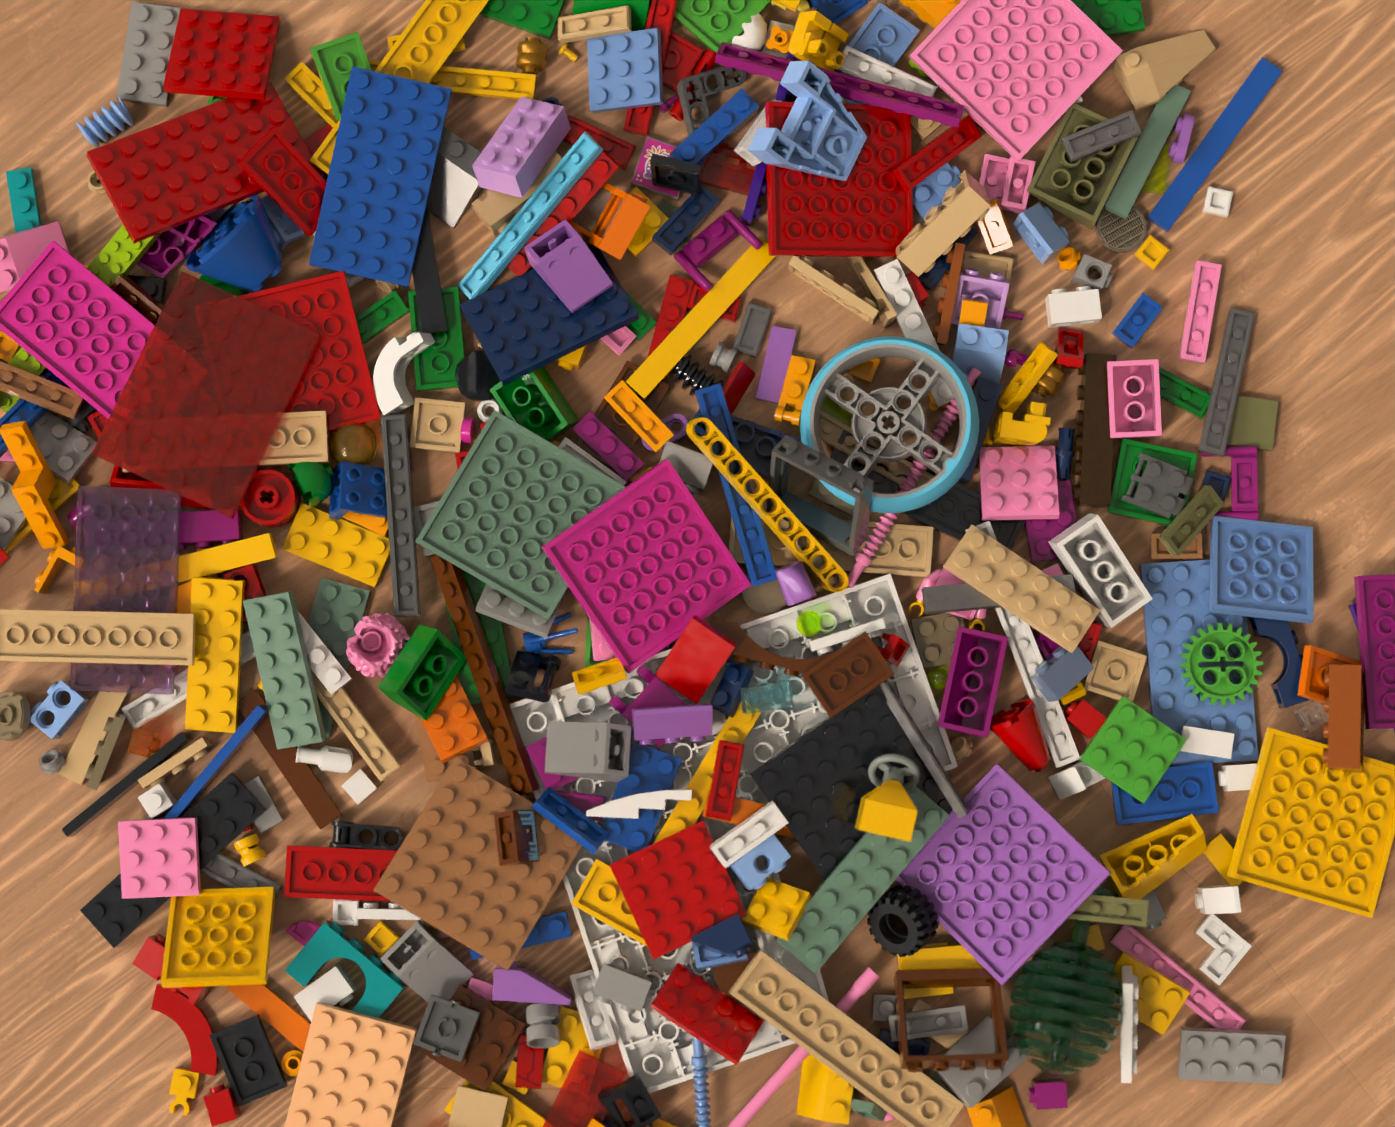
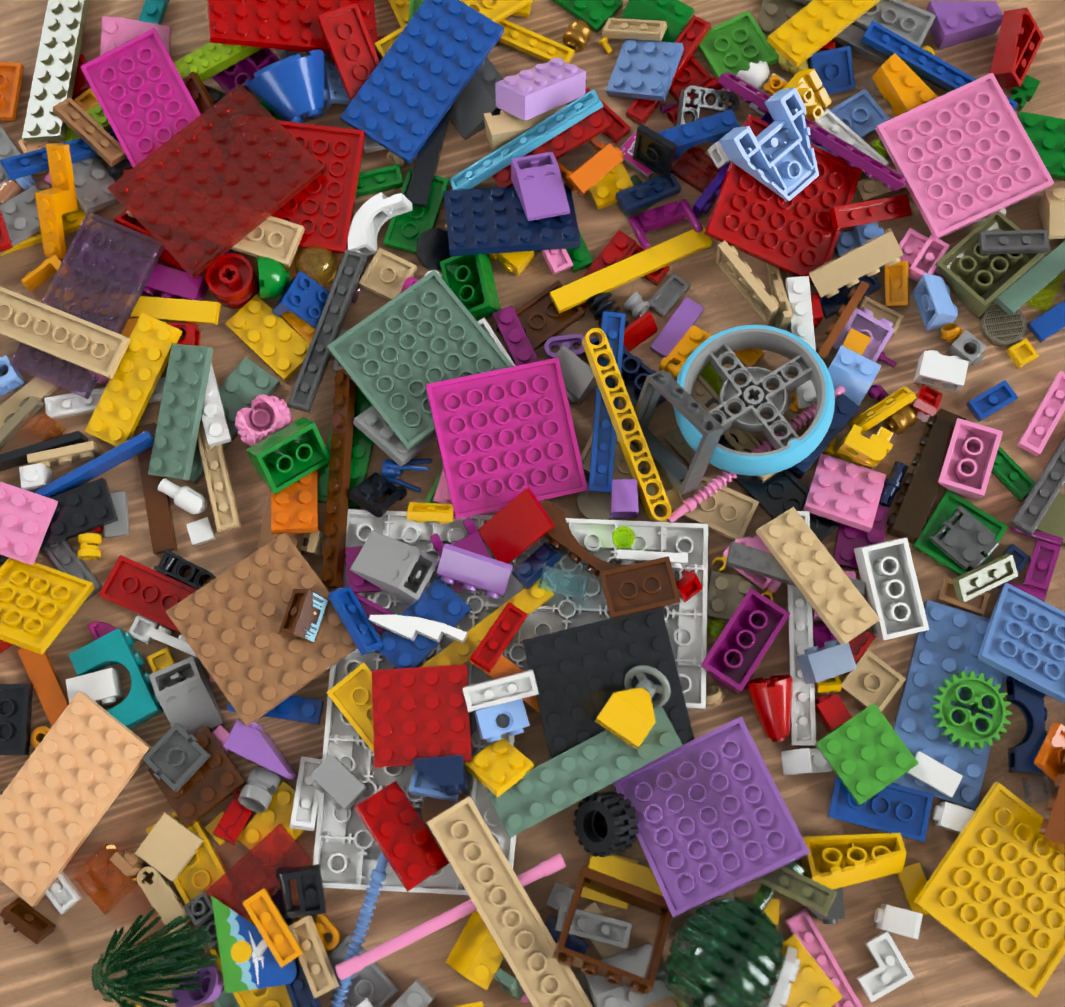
camera: 25 degrees right, 10 degrees down
(639, 416) = (549, 322): light orange plate -> none
(924, 750) = (681, 681): flat silver tile -> none

